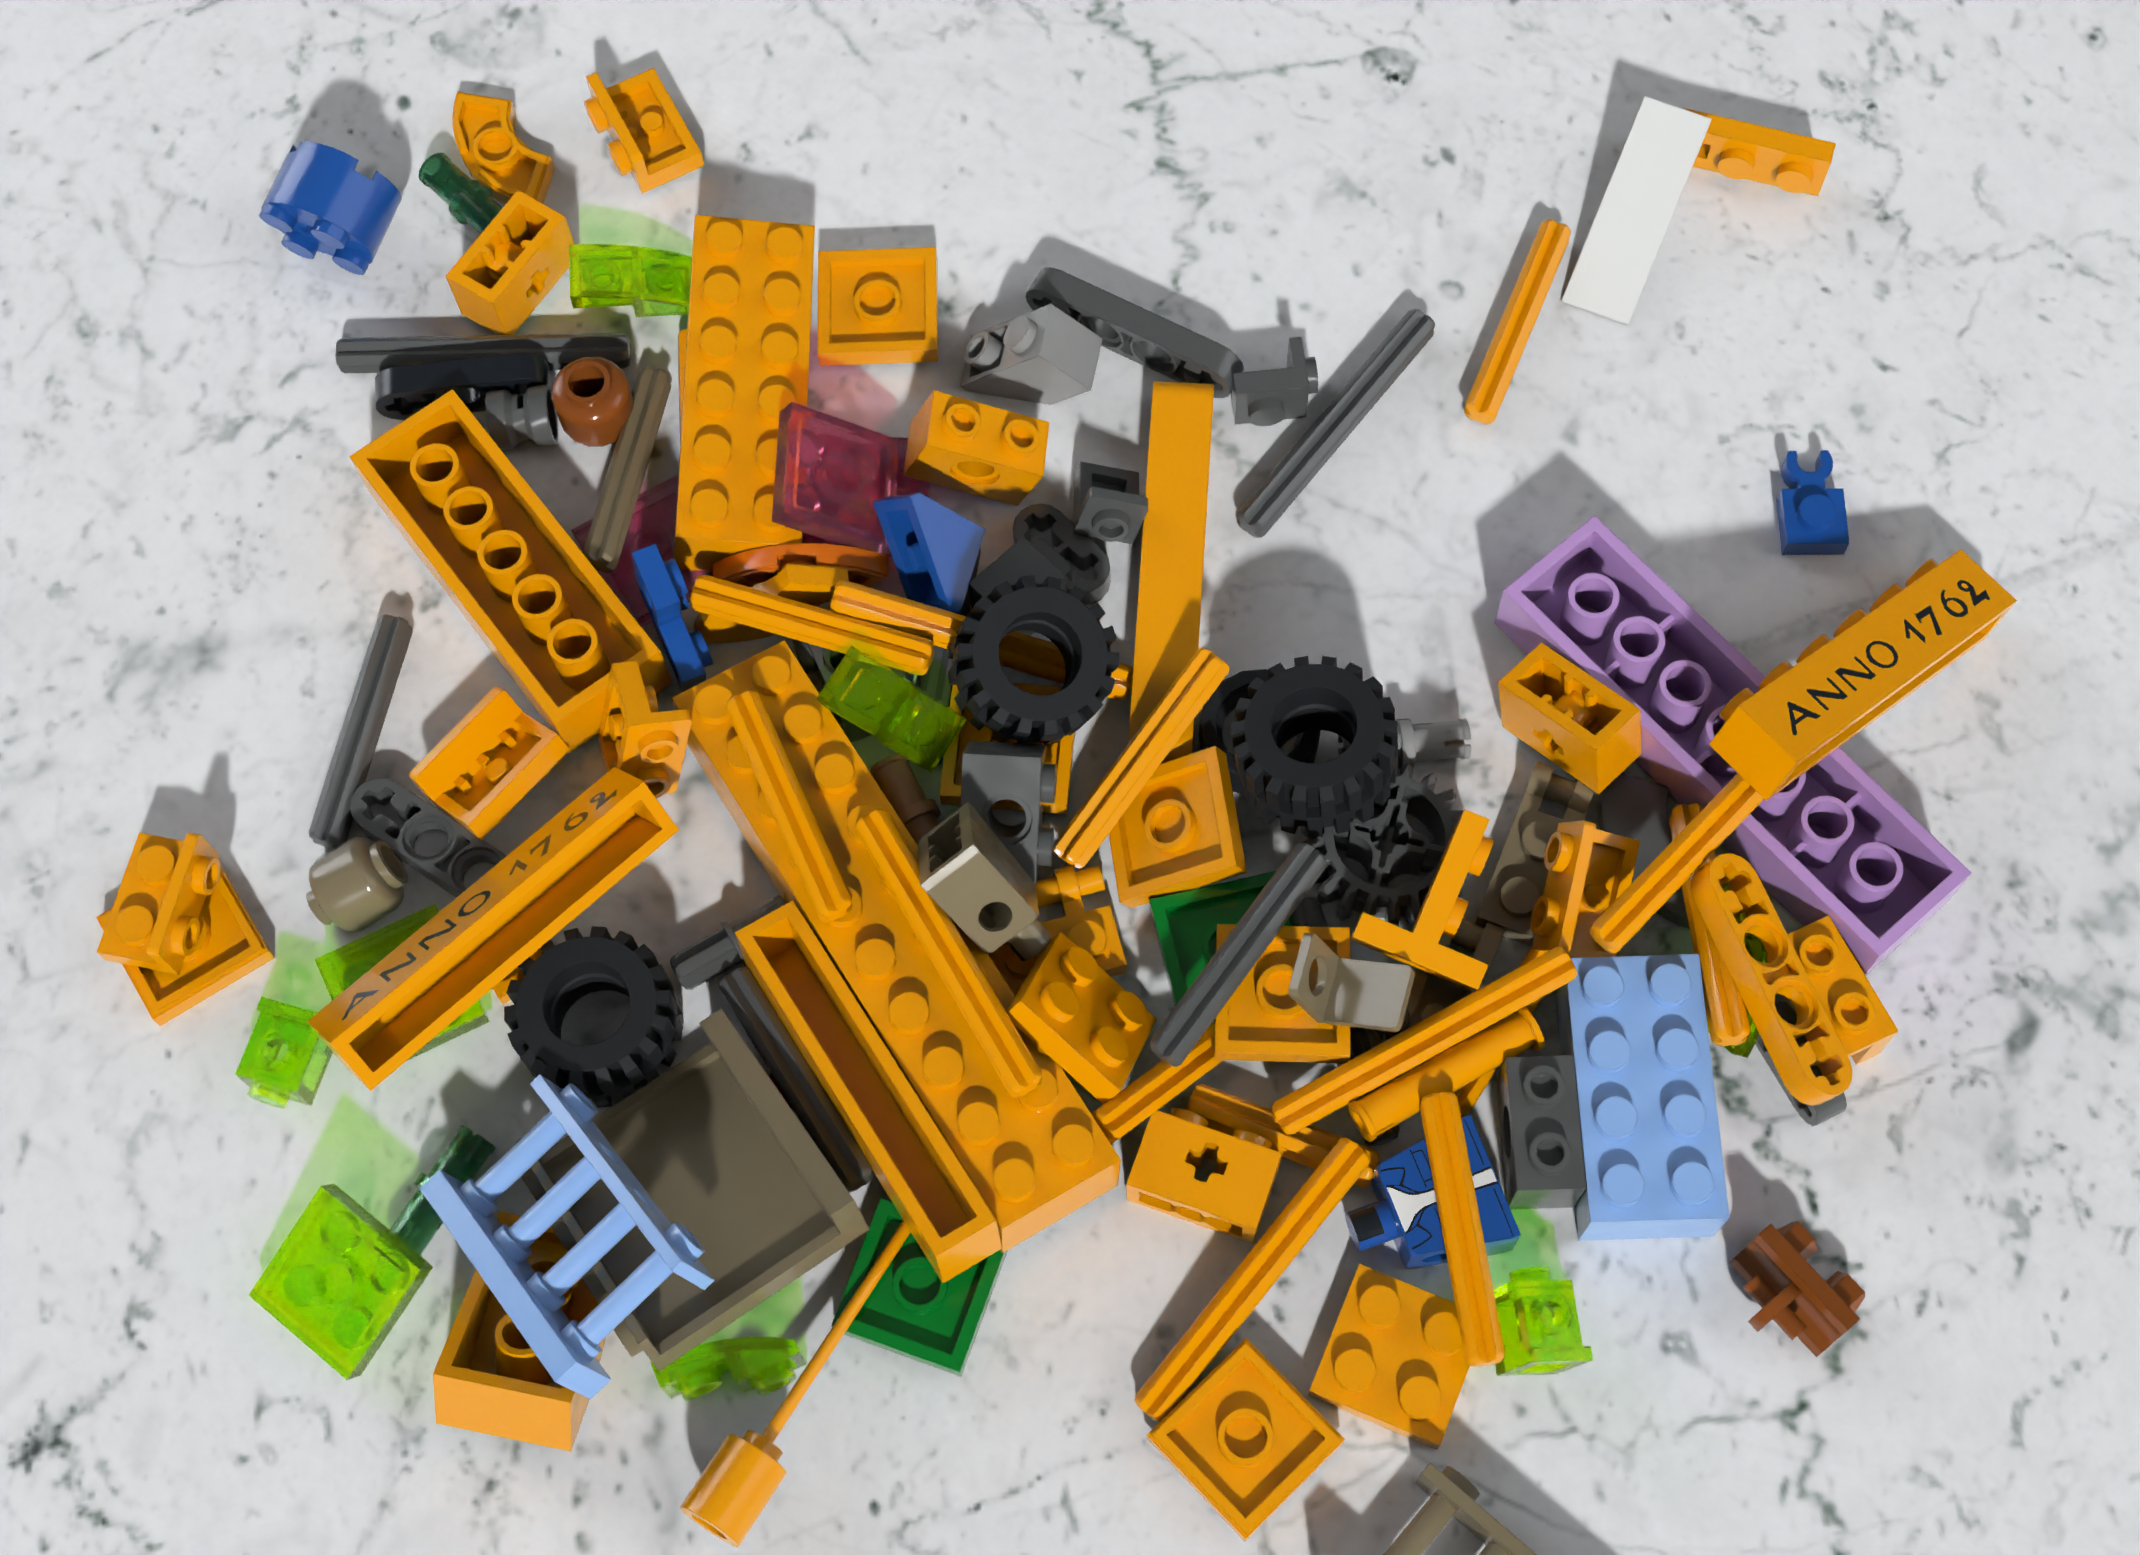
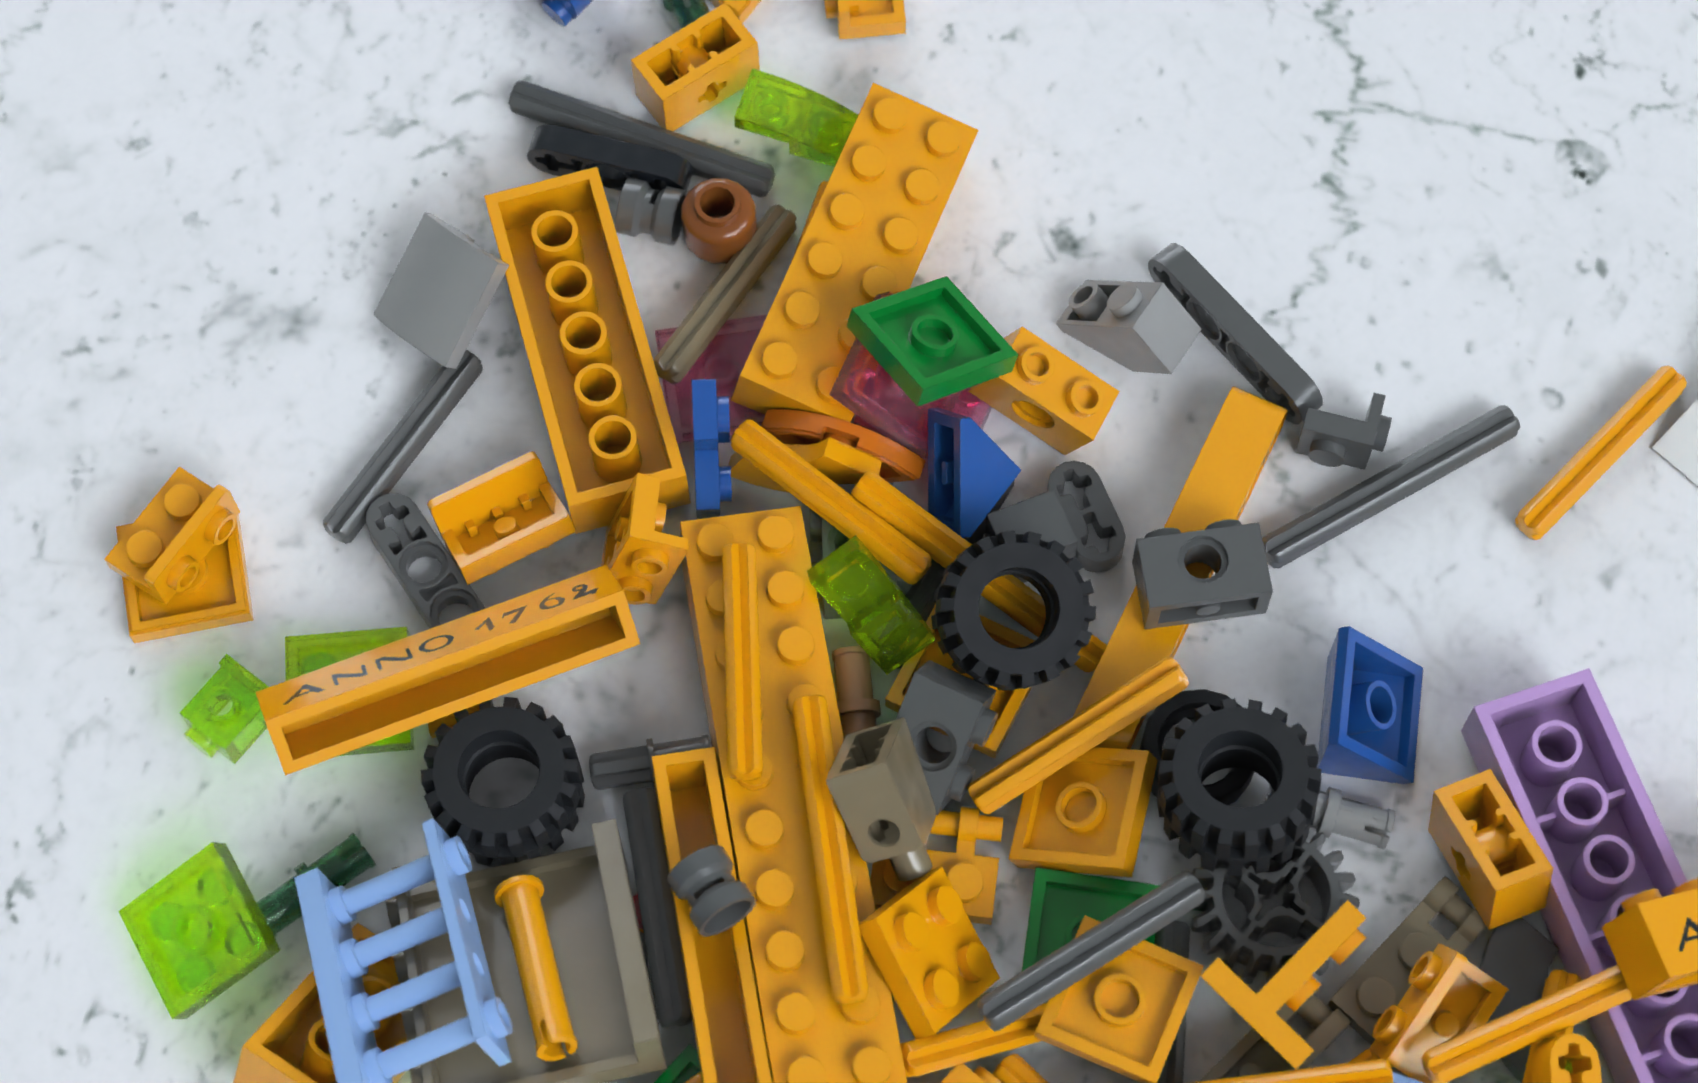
camera: 20 degrees right, 0 degrees up
(340, 565) = (440, 291): none -> light grey slope
(356, 884) = (346, 583): dark tan head -> none
(700, 1180) = (536, 966): none -> light orange pin
(848, 1035) = (711, 890): none -> dark grey wheel
(853, 432) = (932, 340): none -> green plate
(878, 306) = (1010, 223): light orange plate -> none
(1107, 503) = (1145, 485): dark grey bracket -> none
(1183, 591) = (1176, 597): none -> dark grey brick
(1352, 990) = (1180, 1024): dark tan bracket -> none
(1402, 633) = (1369, 711): none -> blue slope

